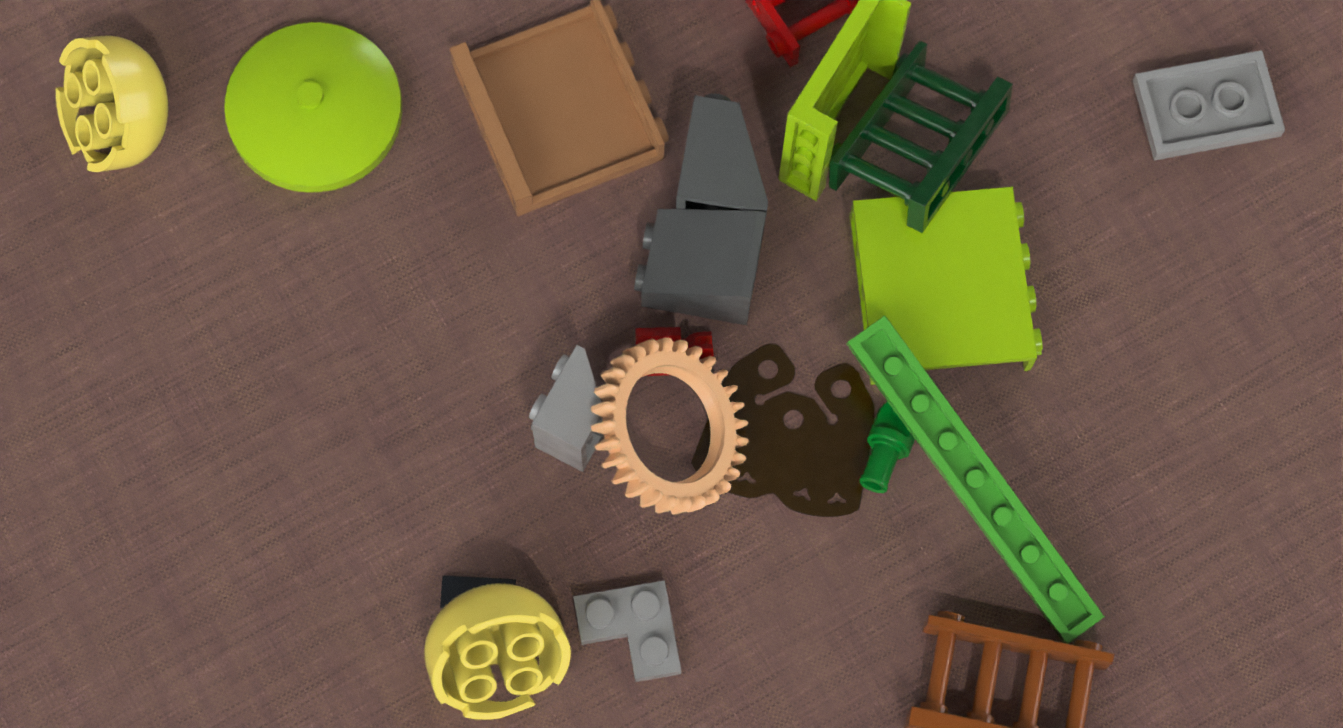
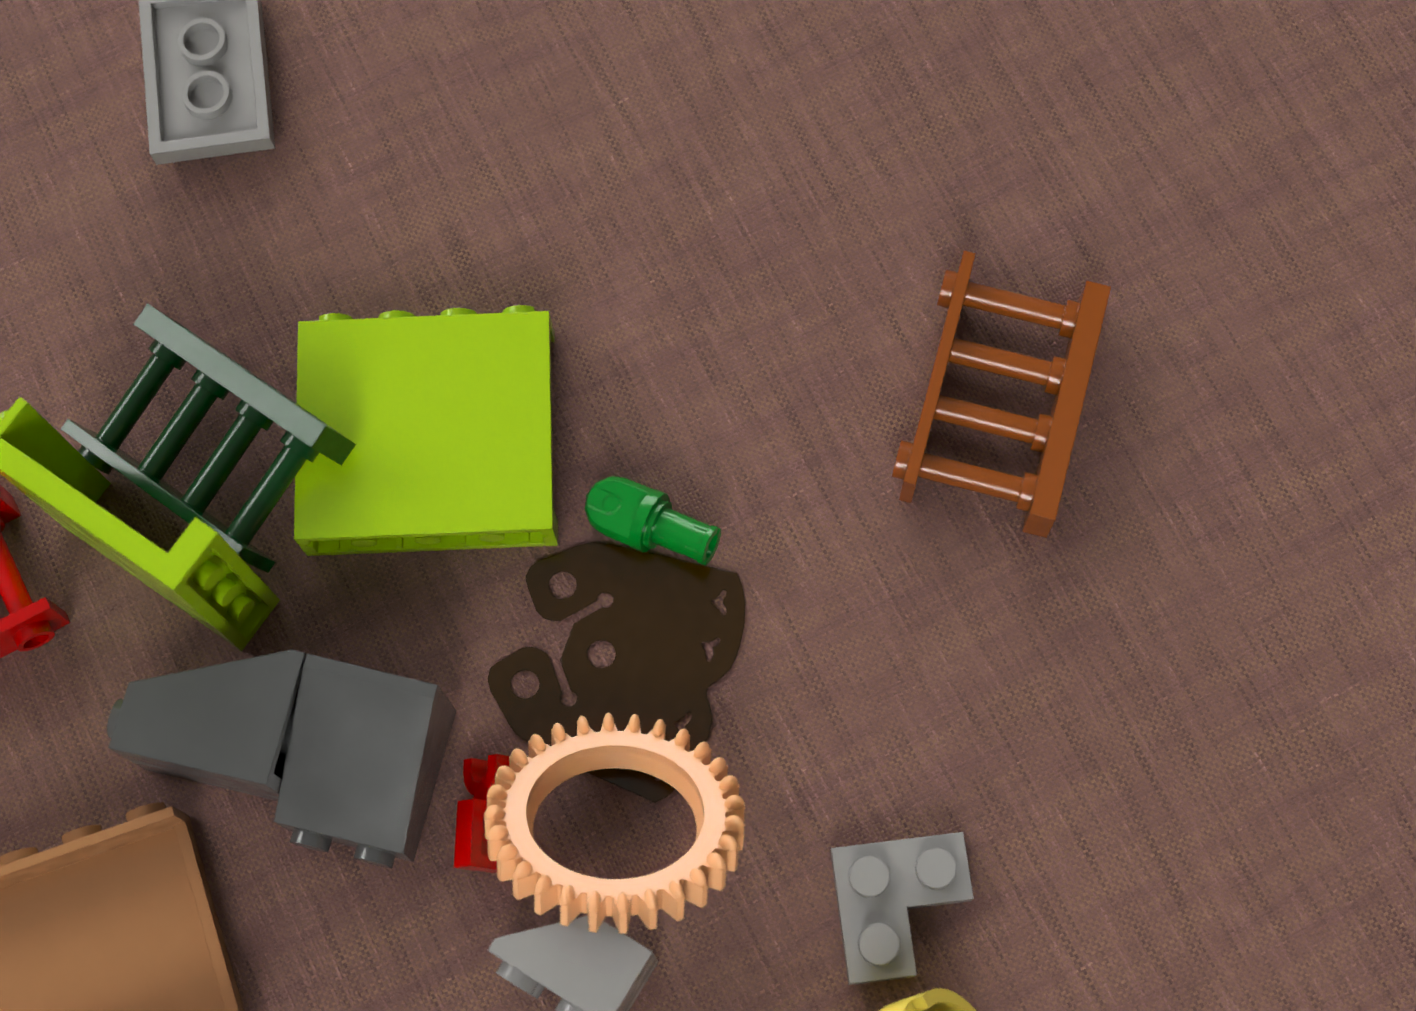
camera: 80 degrees left, 0 degrees up
(975, 480) = (706, 412): bright green plate -> none

